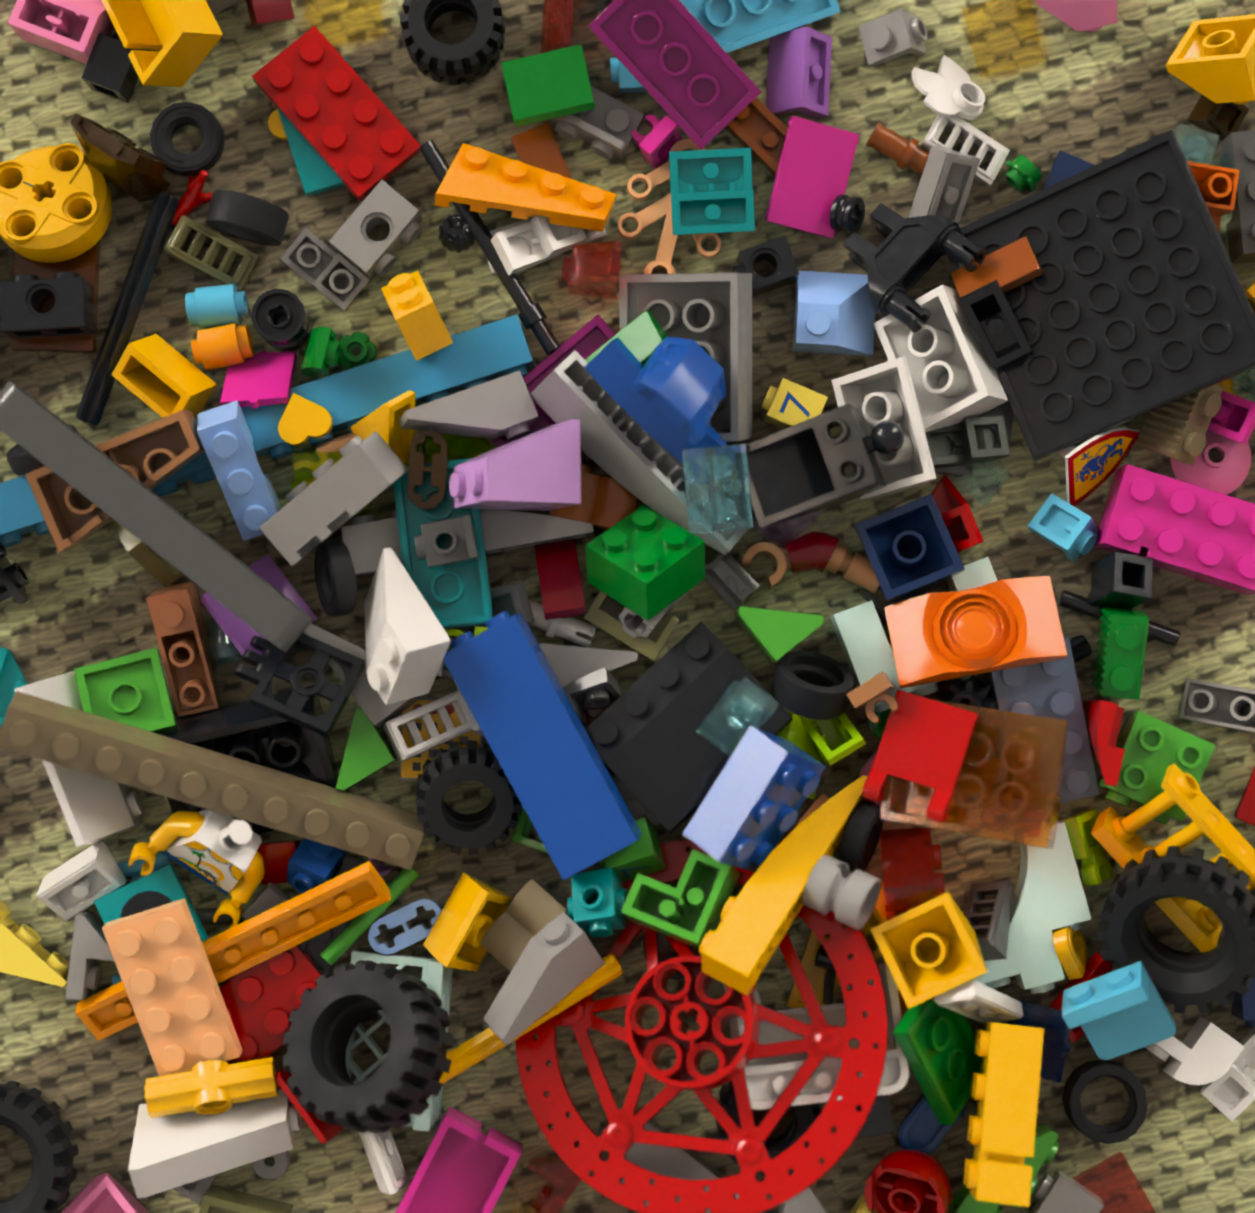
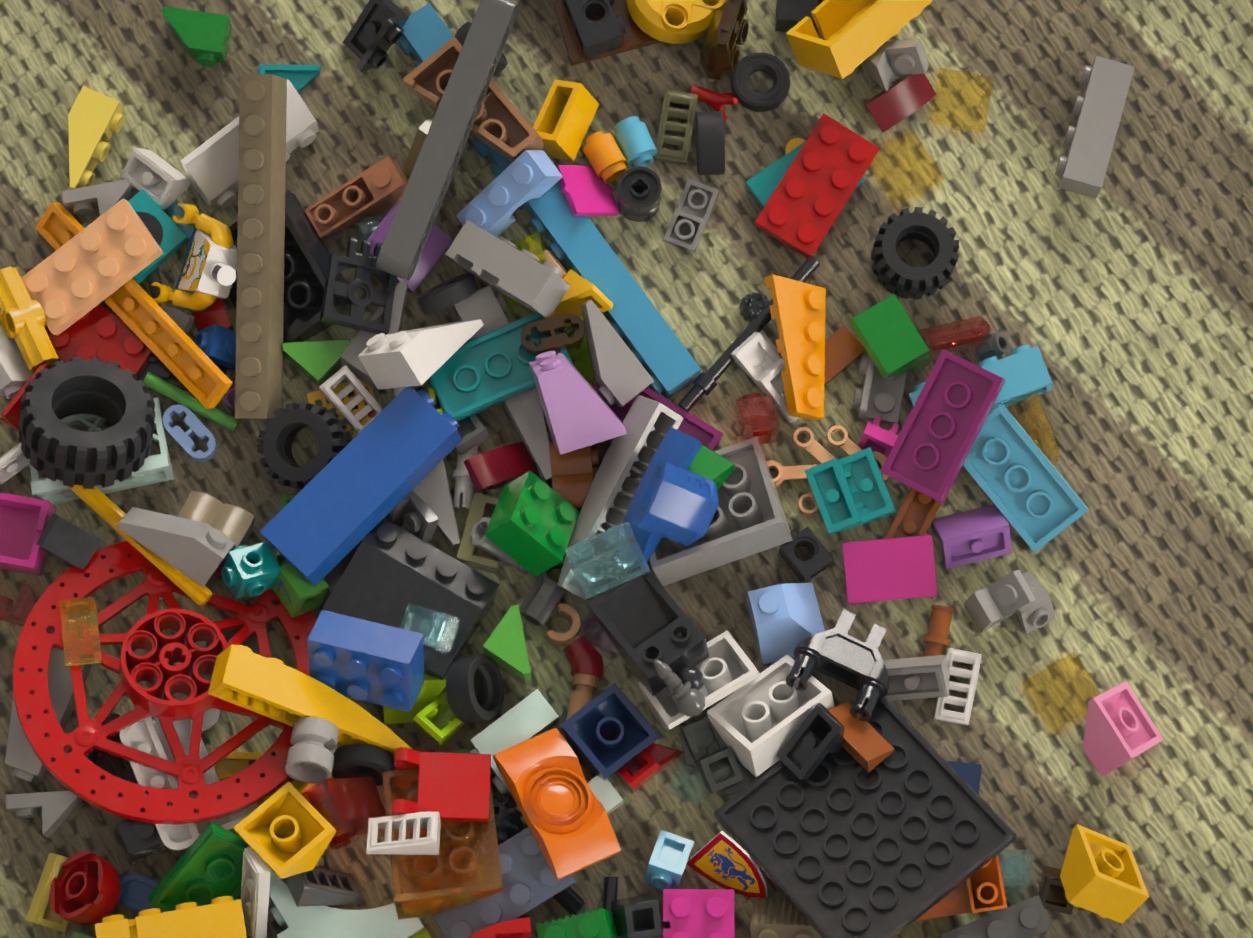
camera: 70 degrees right, 10 degrees down
(127, 307) = (613, 77): black axle -> none
(128, 691) = (312, 165): bright green tile -> none
(303, 420) = (563, 231): yellow tile -> none
(320, 352) = (621, 229): green slope -> none
(356, 340) = (638, 250): green plate -> none
(380, 207) = (724, 229): light grey brick -> none
(416, 314) = (674, 291): yellow piece -> none
(462, 549) = (500, 377): dark grey brick -> none
(464, 922) = (203, 473): yellow slope -> none
(502, 1105) = (67, 543): none -> black slope
(617, 1122) = (80, 631): none -> clear yellow slope
(688, 909) = (269, 635): bright green brick -> none
(792, 404) = (699, 605): light yellow brick -> none
(847, 213) = (869, 606): black bush -> none
(871, 693) = (480, 732): medium nougat tile -> none
(888, 66) = (999, 600): none -> light grey slope
(915, 444) = (689, 700): none -> dark grey bar
(949, 90) = (998, 657): white plate -> none
(993, 789) = (416, 846): none -> white slope
(1022, 174) = (951, 739): green plate -> none

